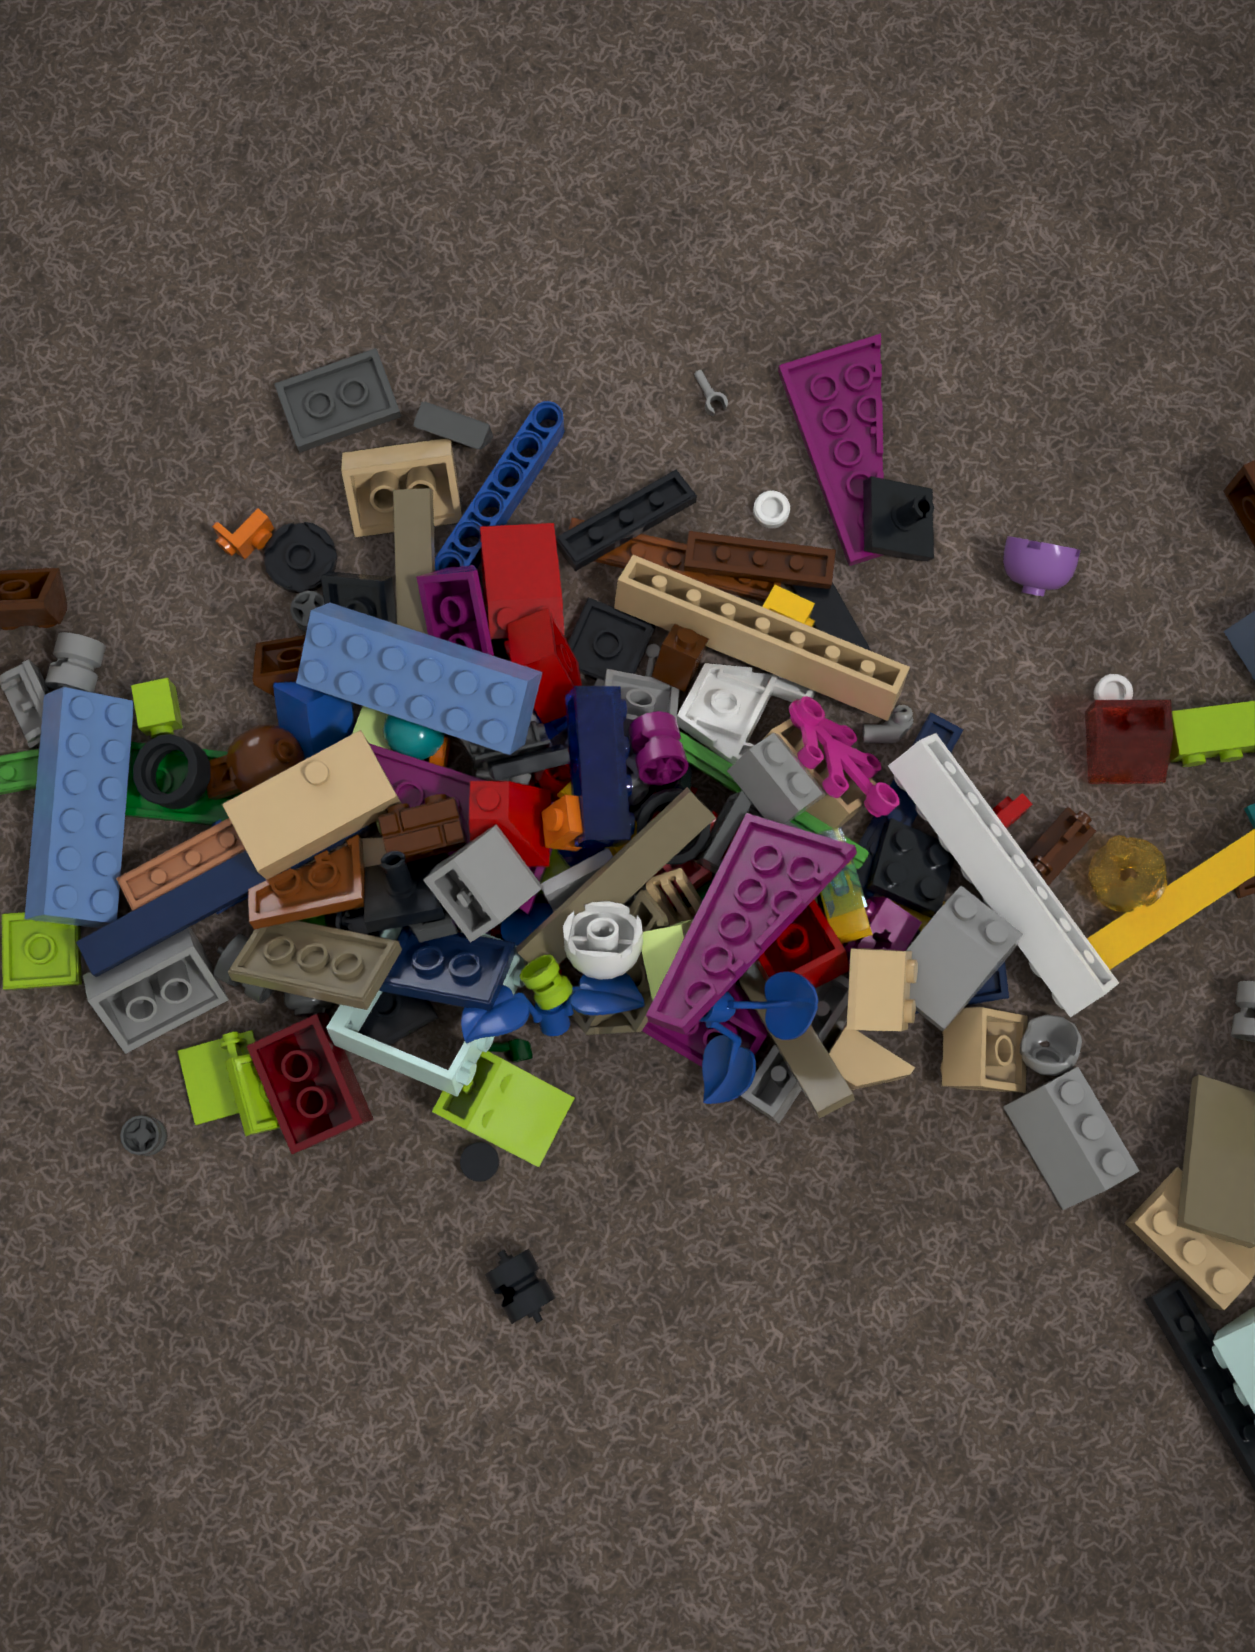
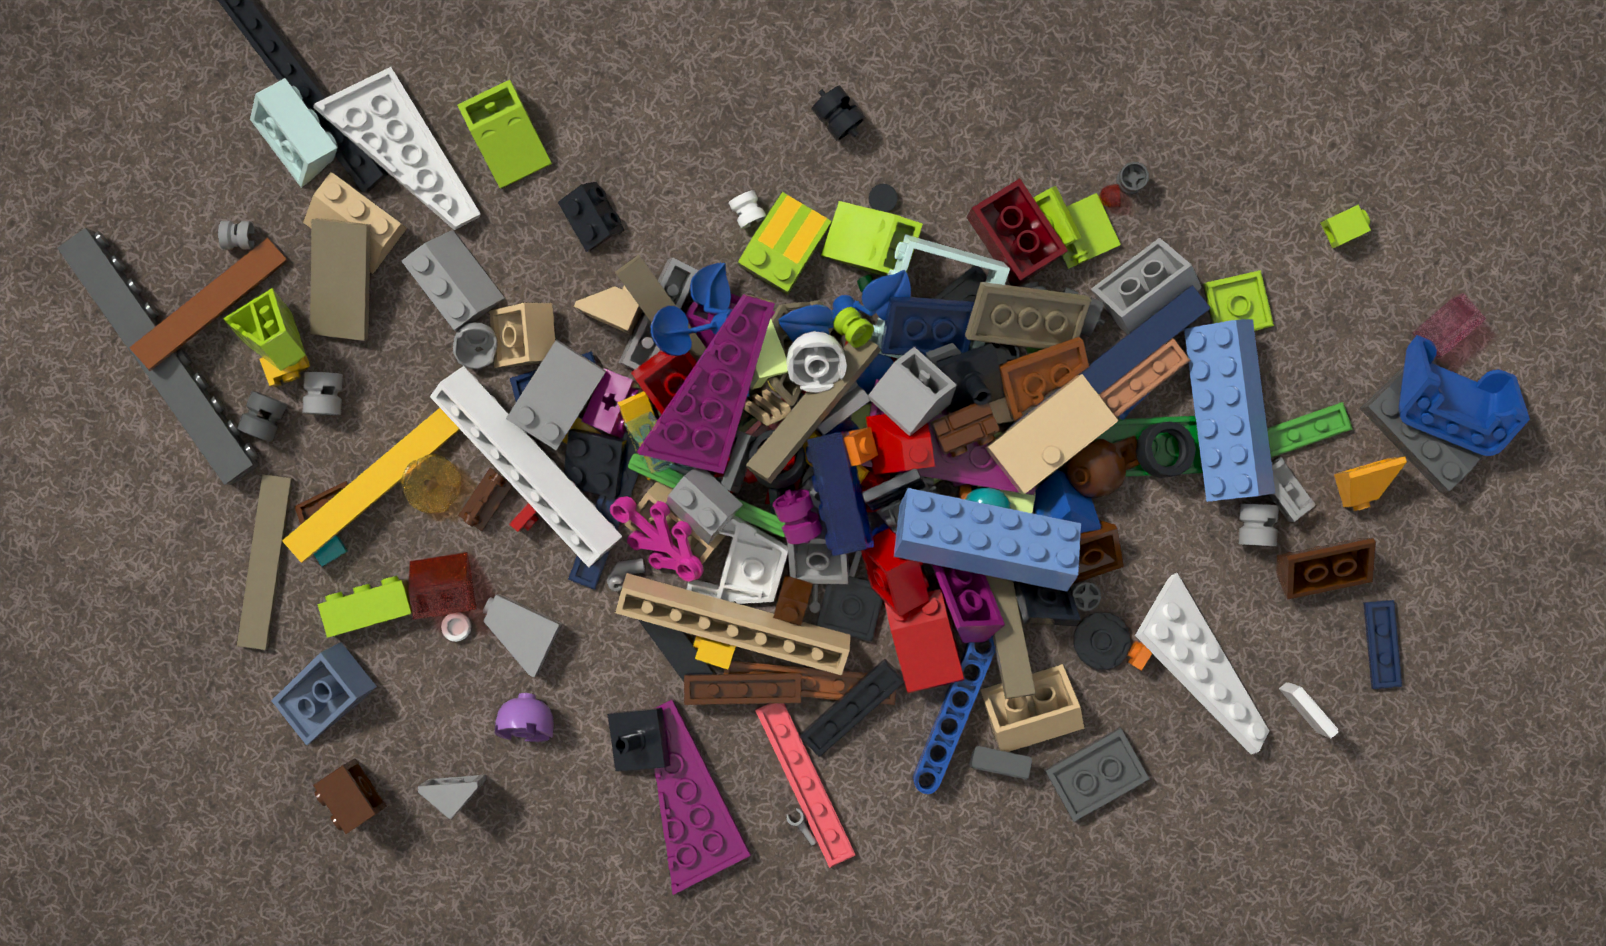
camera: 165 degrees right, 10 degrees up
(61, 431) = (1309, 710): none -> white tile
(157, 707) = (1188, 500): lime brick -> none
(177, 1117) = (1110, 196): none -> clear red hinge
(192, 520) = (1189, 650): none -> white wing
(619, 1120) = (784, 243): none -> lime slope
(662, 1173) = (746, 207): none -> white wheel
(697, 440) = (805, 783): none -> coral tile
(771, 509) = (739, 736): white tile -> none
(873, 1199) = (591, 215): none -> black bracket
(881, 990) = (606, 359): tan slope -> none
(978, 1329) = (504, 134): none -> lime slope
(1031, 673) = (522, 631): none -> light grey slope
(1134, 1357) = (392, 132): none -> white wing
(1143, 487) = (451, 793): none -> light grey slope

